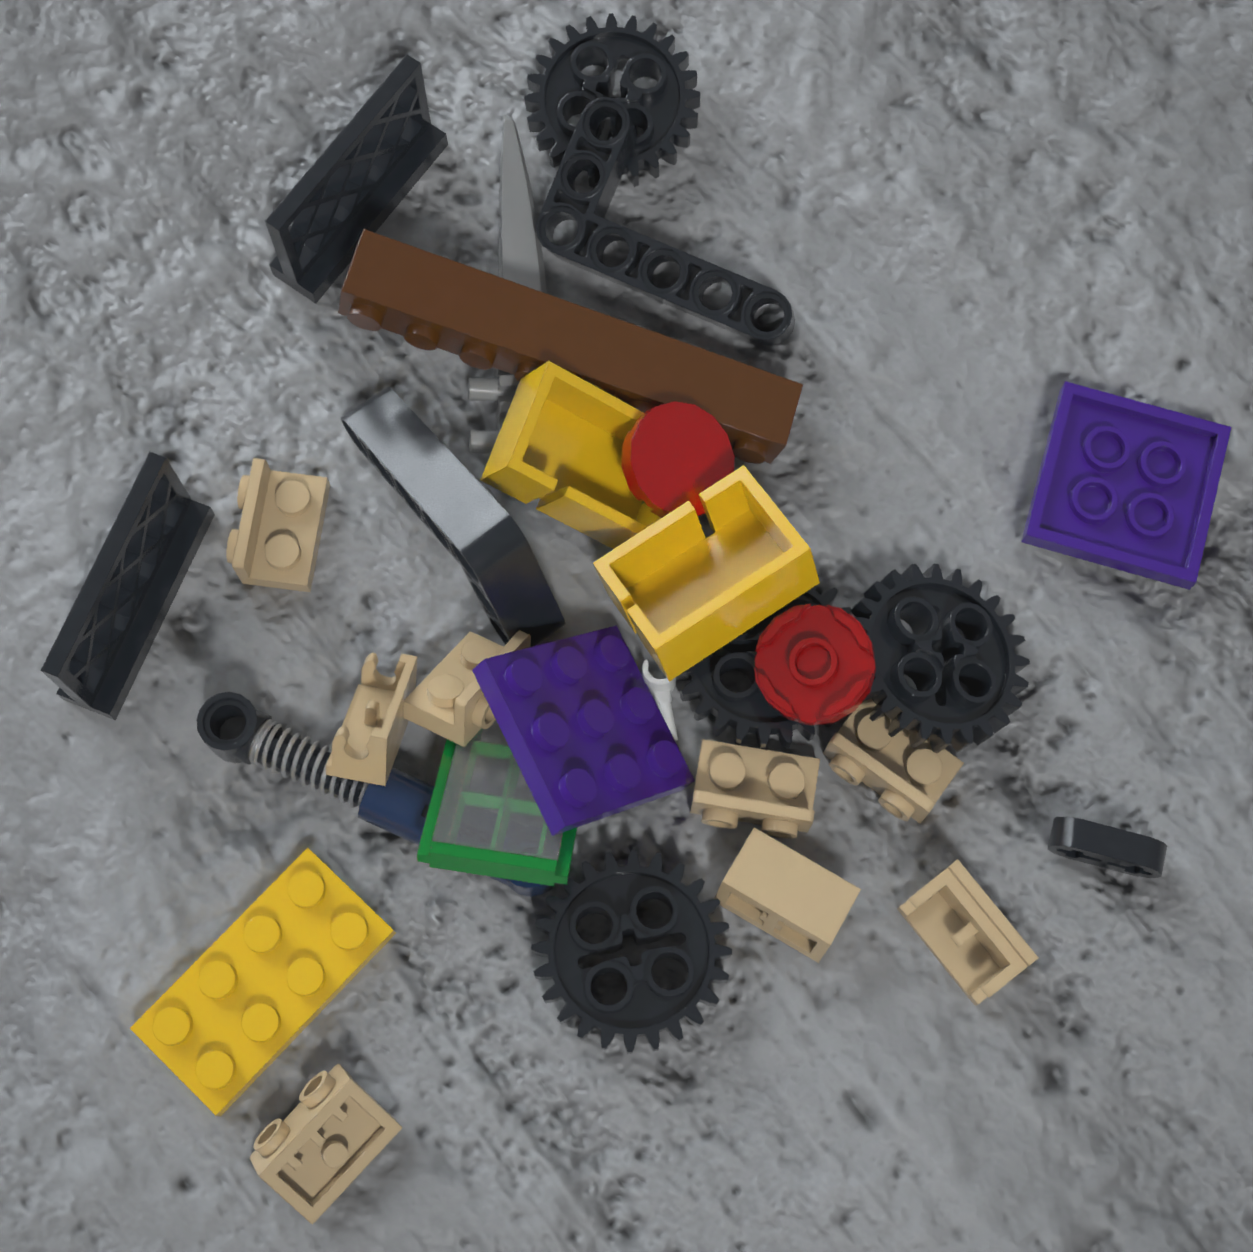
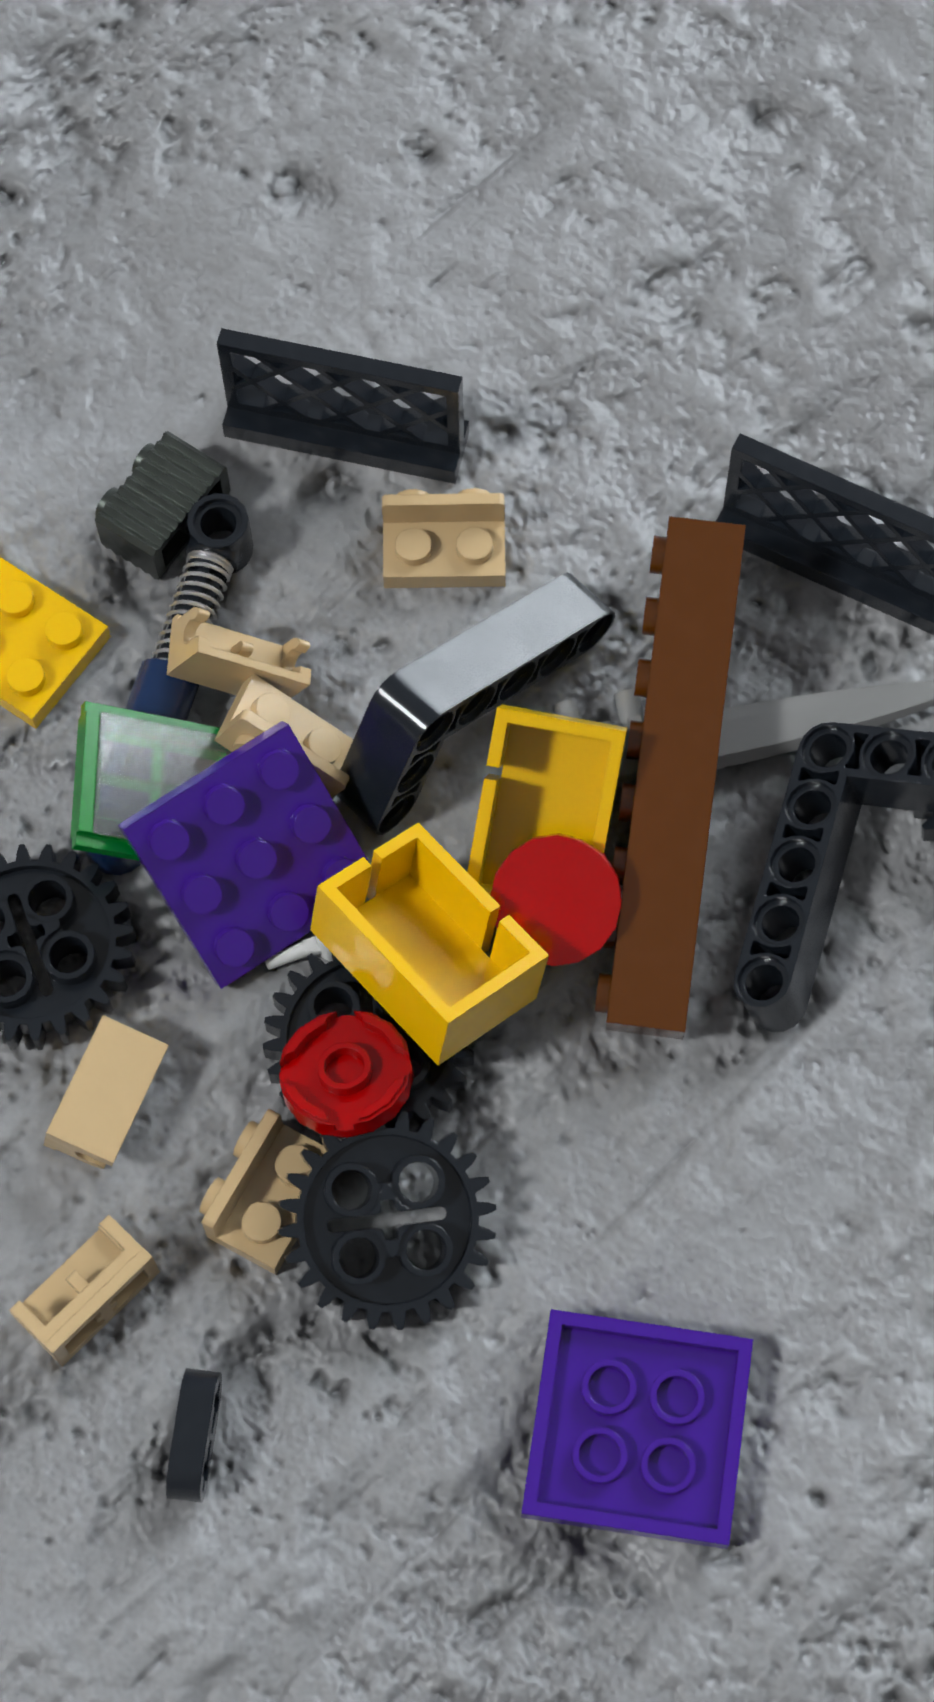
camera: 85 degrees right, 5 degrees down
(187, 780) = (150, 510): none -> pearl dark grey brick
(755, 788) = (220, 1052): tan bracket -> none

